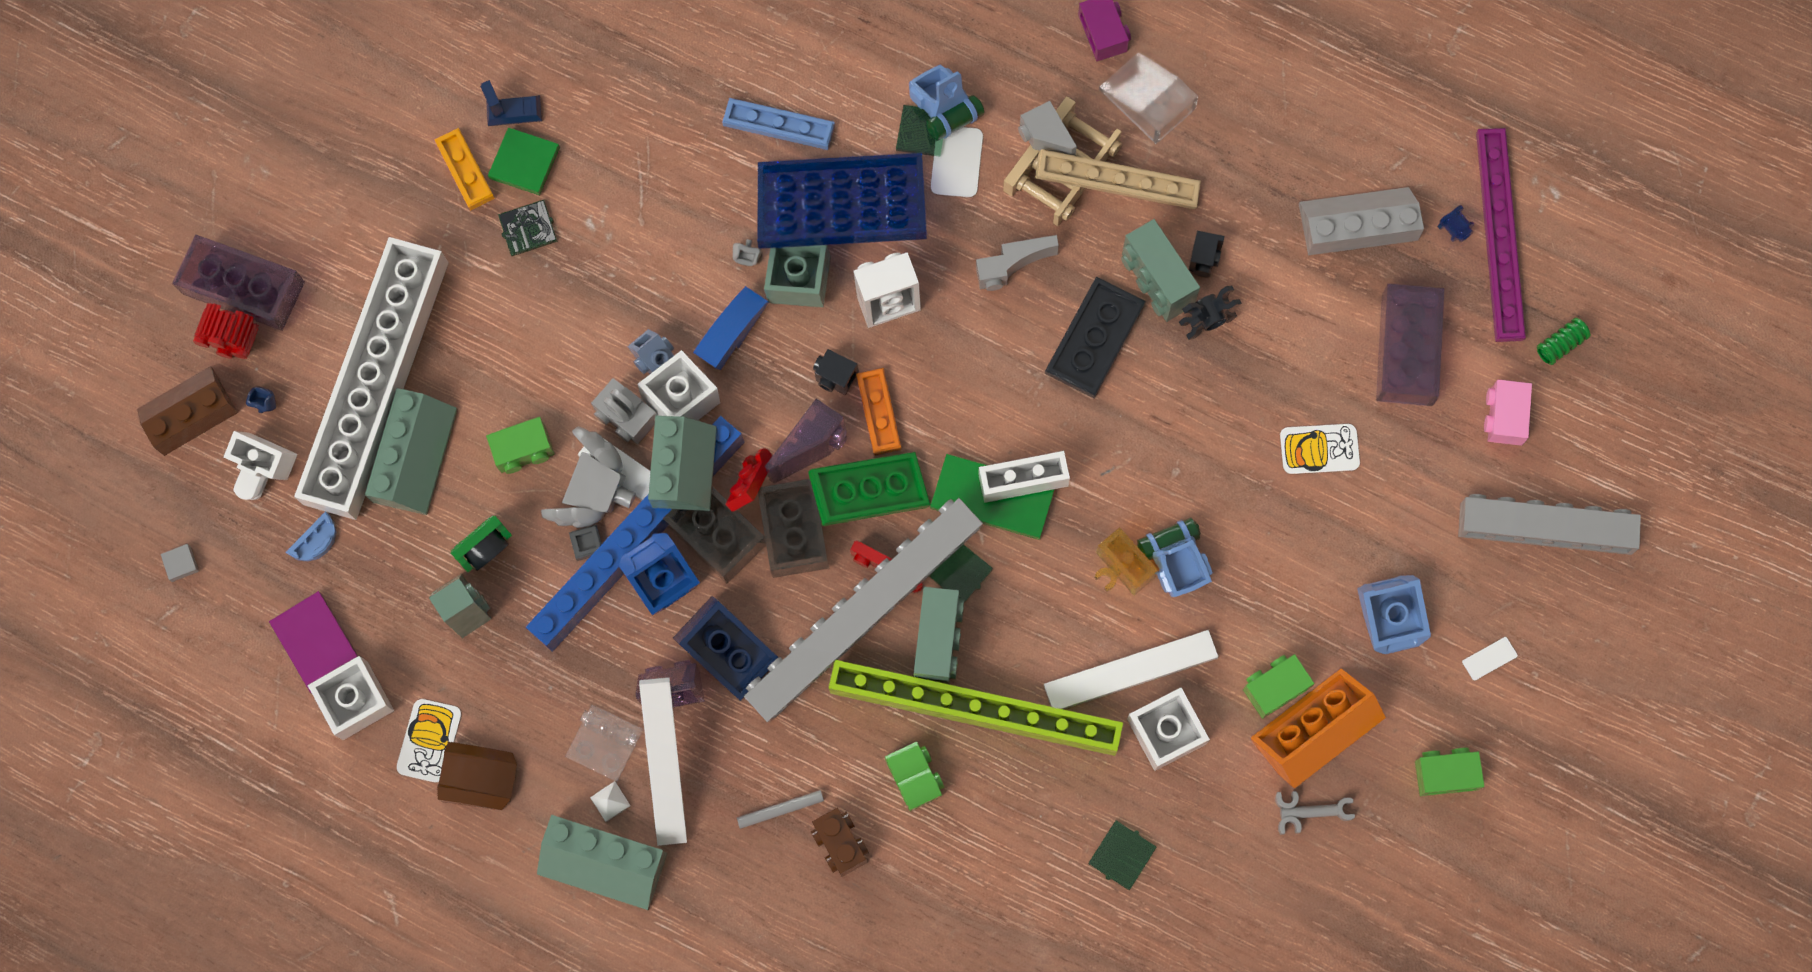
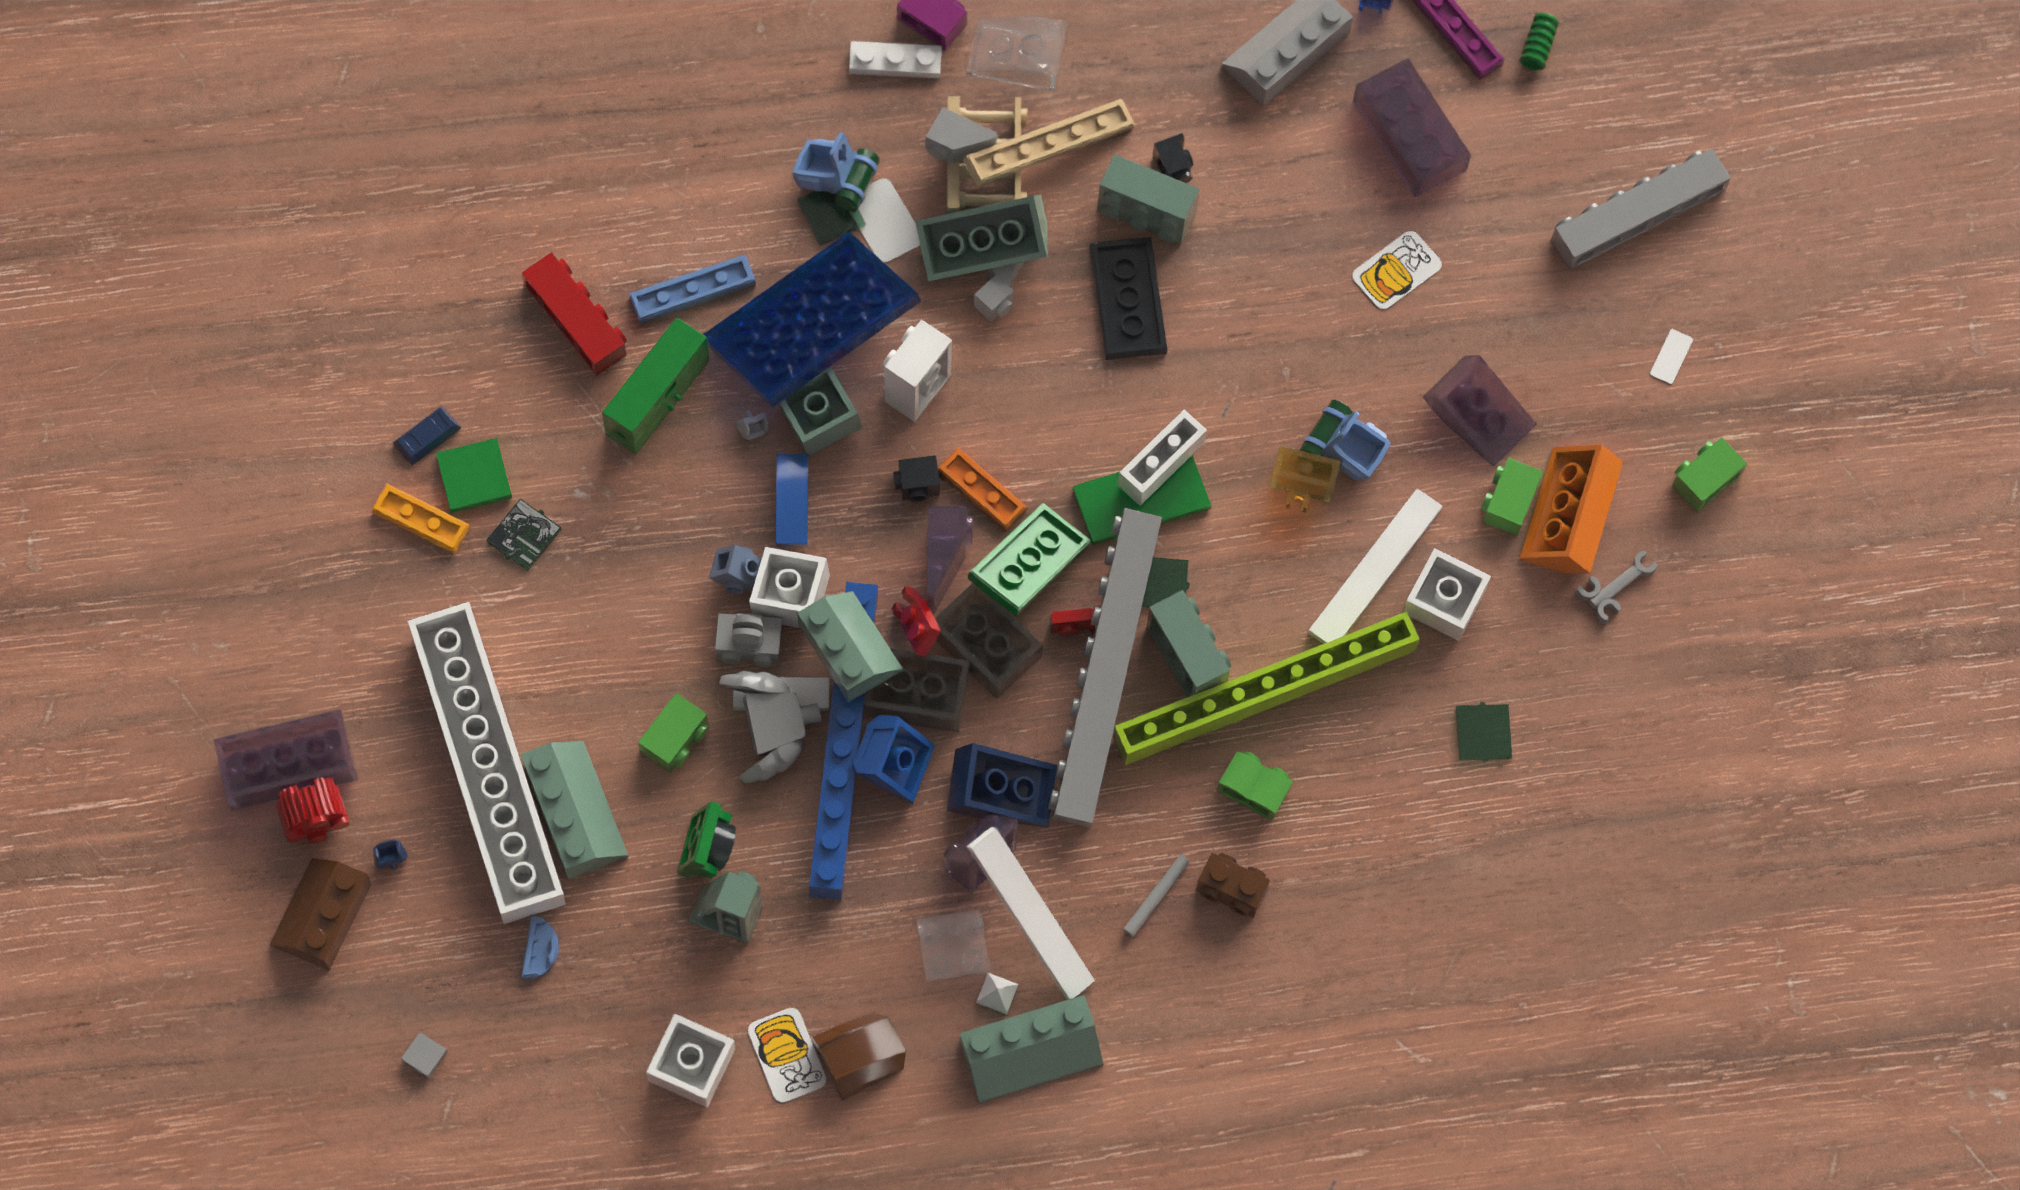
camera: 45 degrees left, 5 degrees down
(257, 462) = (434, 910): white brick -> none
(313, 638) = (611, 1038): magenta tile -> none
(492, 98) = (405, 434): dark blue tile -> none
(585, 542) = (800, 781): dark grey tile -> none
(678, 87) = (574, 313): none -> red brick
(693, 178) = (656, 386): none -> green brick
(1013, 220) = (984, 237): none -> sand green slope
(1052, 45) = (895, 59): none -> white plate
(1210, 312) = (1218, 208): black pin -> none
(1303, 601) = (1480, 408): none -> slope
(1395, 613) = (1566, 368): medium blue slope -> none
(1508, 412) = (1537, 132): bright pink brick -> none

